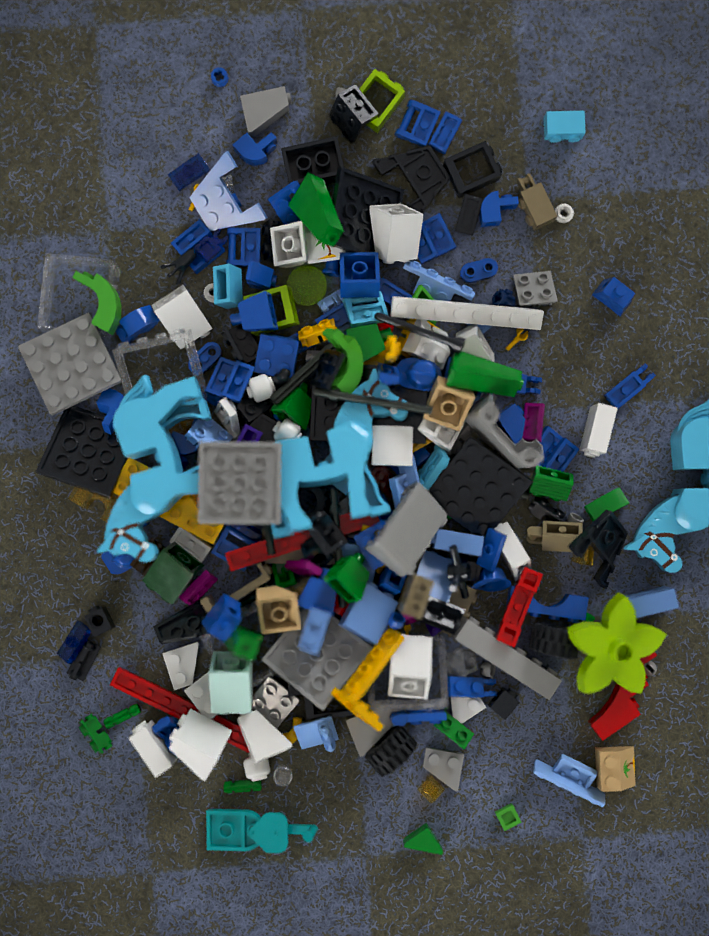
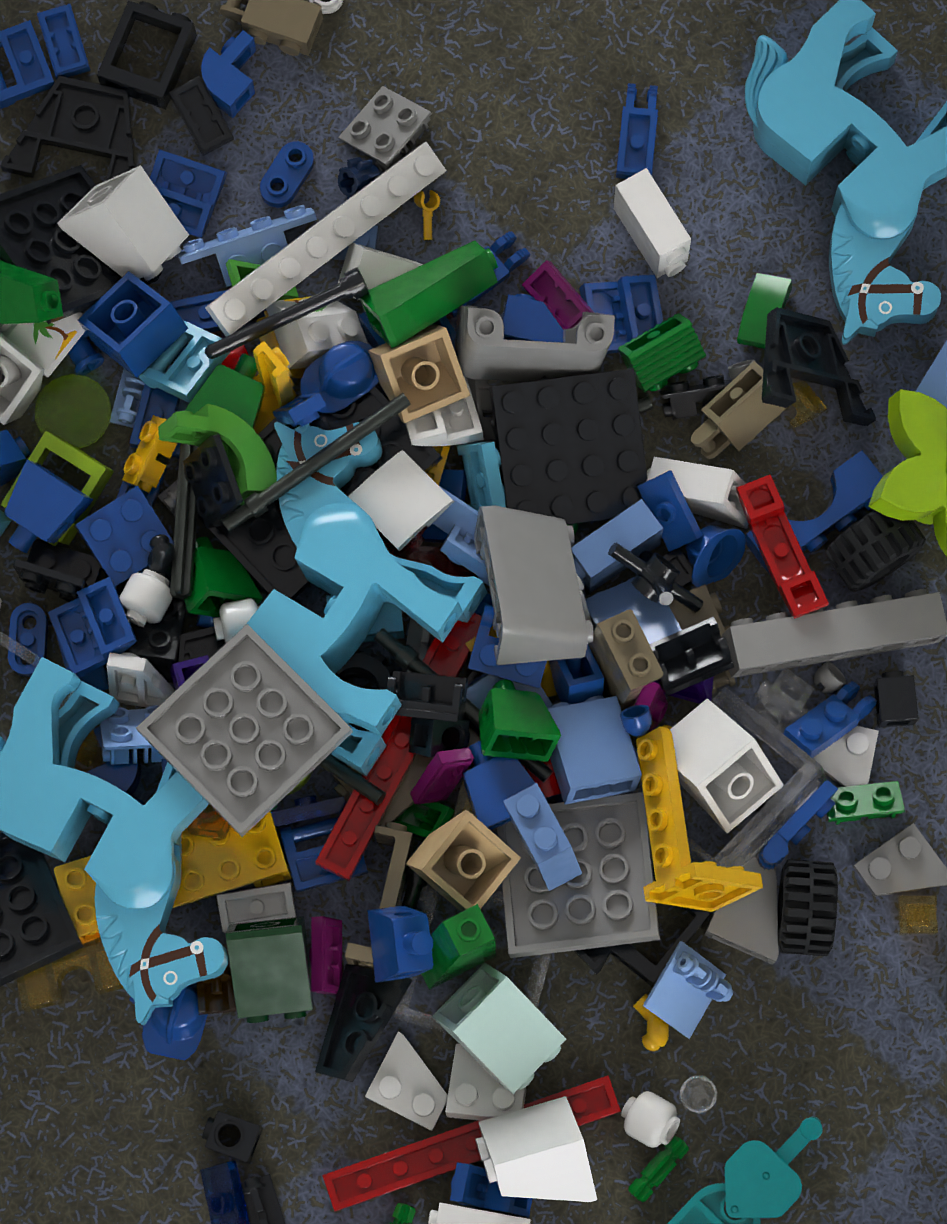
camera: 35 degrees left, 10 degrees down
(261, 737) = (614, 1065): white slope -> none
(273, 702) = (584, 1004): light grey hinge -> none
(614, 295) = (499, 35): blue torso -> none

